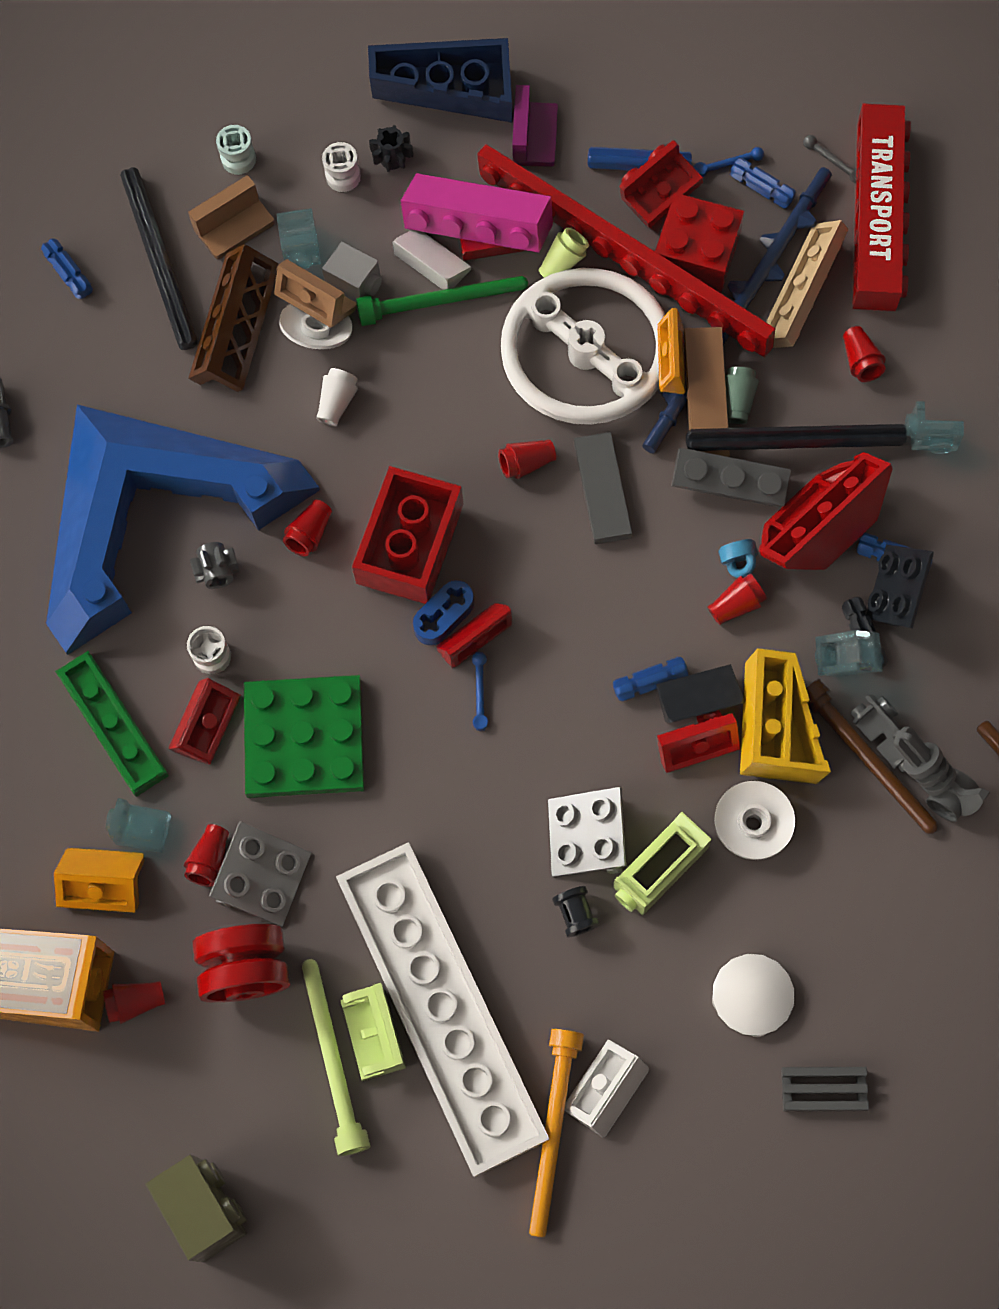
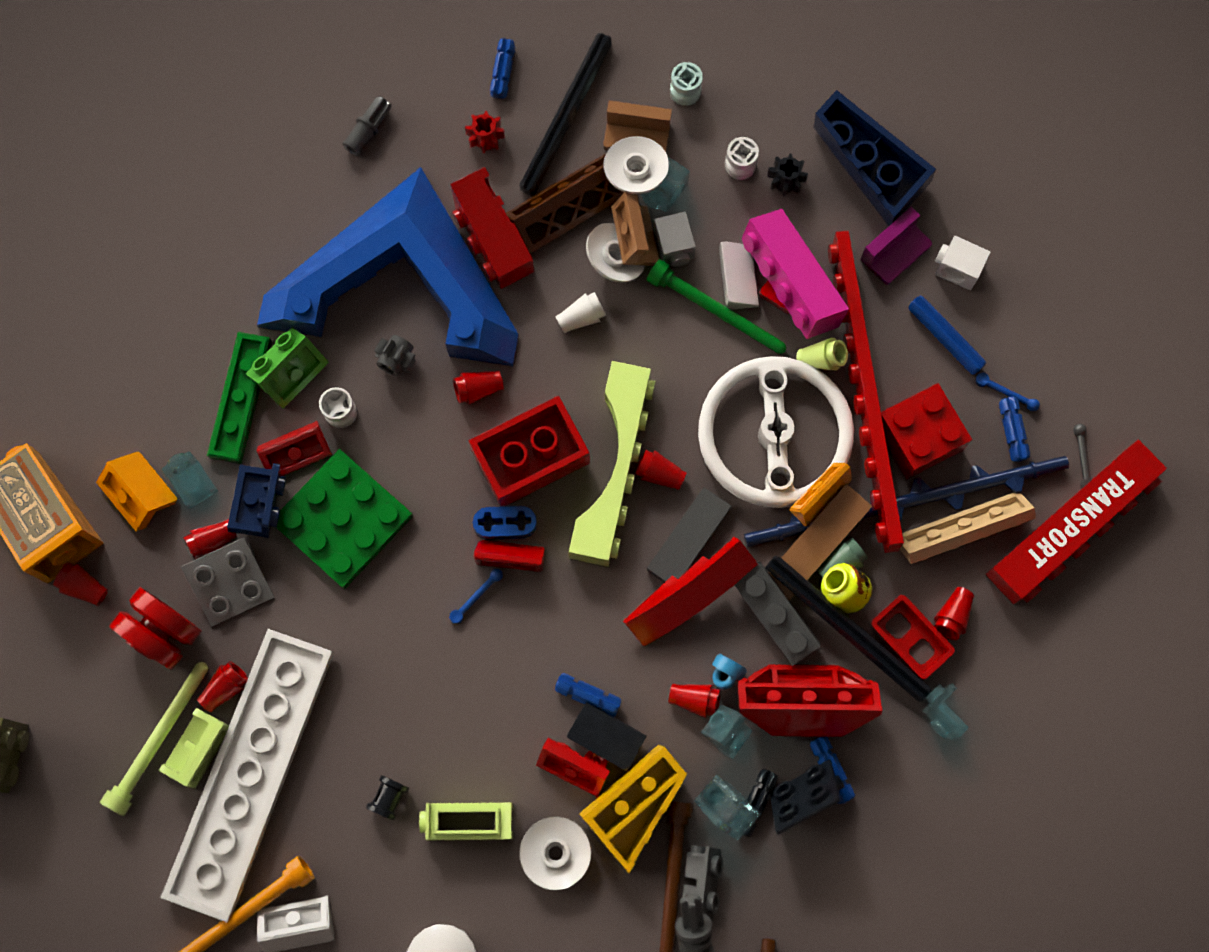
camera: 40 degrees right, 5 degrees up
(105, 328) = (485, 132): none -> red gear
(130, 657) = (287, 367): none -> bright green bracket
(191, 397) = (490, 229): none -> red wedge
(218, 783) = (254, 500): none -> dark blue bracket
(260, 229) = (639, 154): none -> white dish
(345, 960) = (224, 685): none -> red cone
(441, 428) = (596, 528): none -> yellowish green arch
(587, 833) = (445, 754): hinge -> none
(595, 96) = (961, 262): none -> white brick
(649, 532) = (691, 593): none -> red slope
(653, 185) = (939, 363): red bracket -> none
(764, 406) = (846, 587): none -> neon yellow head
(787, 598) = (727, 731): none -> clear light blue bracket
(848, 390) = (920, 629): none -> red piece

